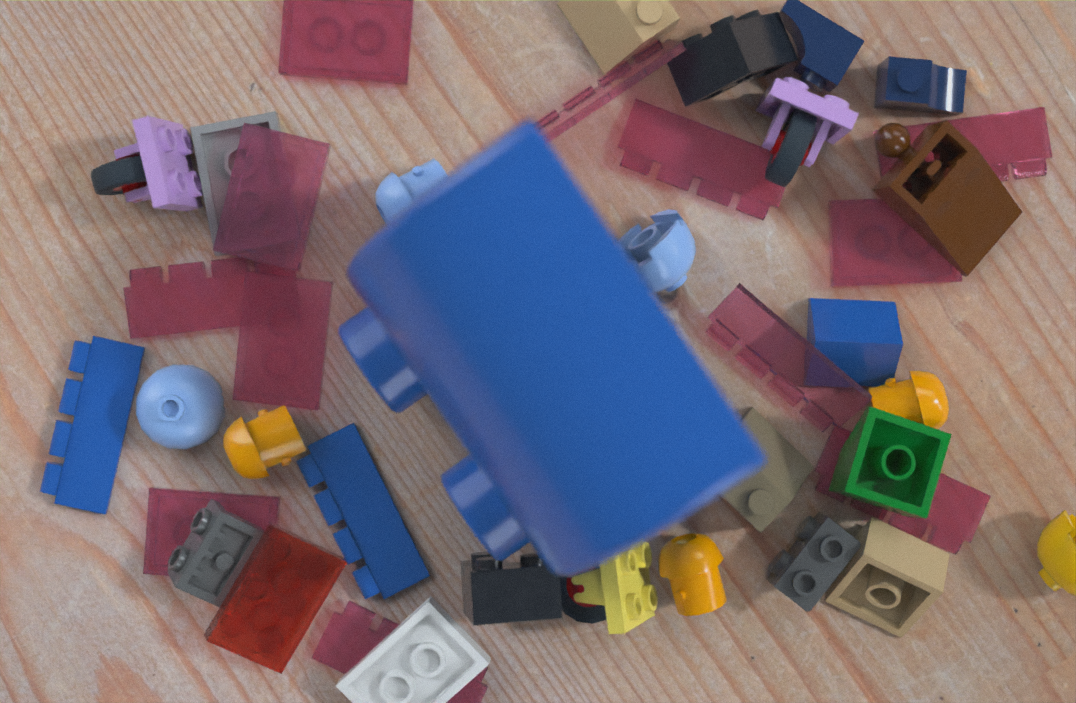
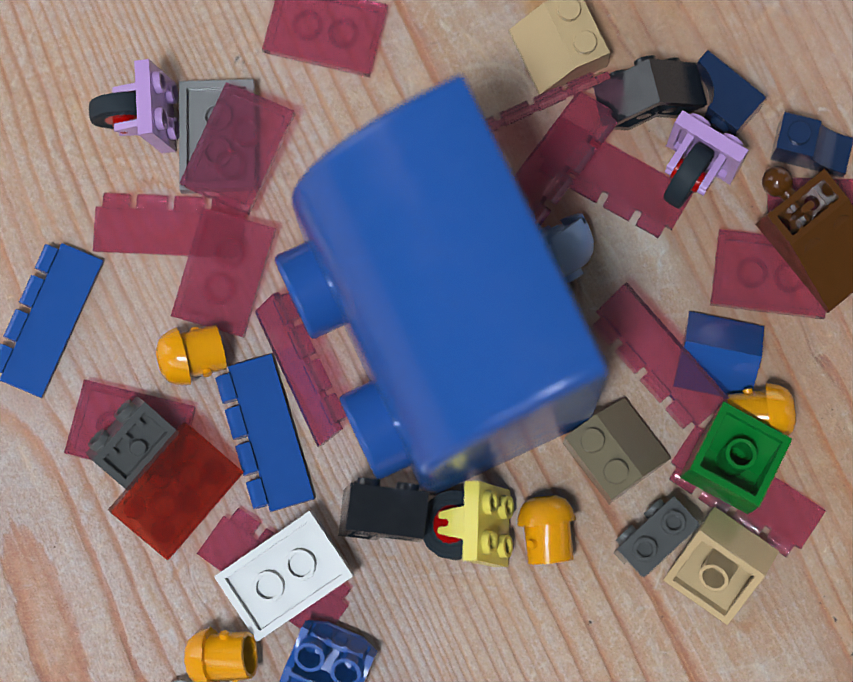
camera: 20 degrees right, 10 degrees down
(180, 406) = (124, 315): light blue cylinder -> none
(398, 450) = (305, 377): none -> clear pink windscreen
(637, 141) = (561, 149): none -> clear pink windscreen

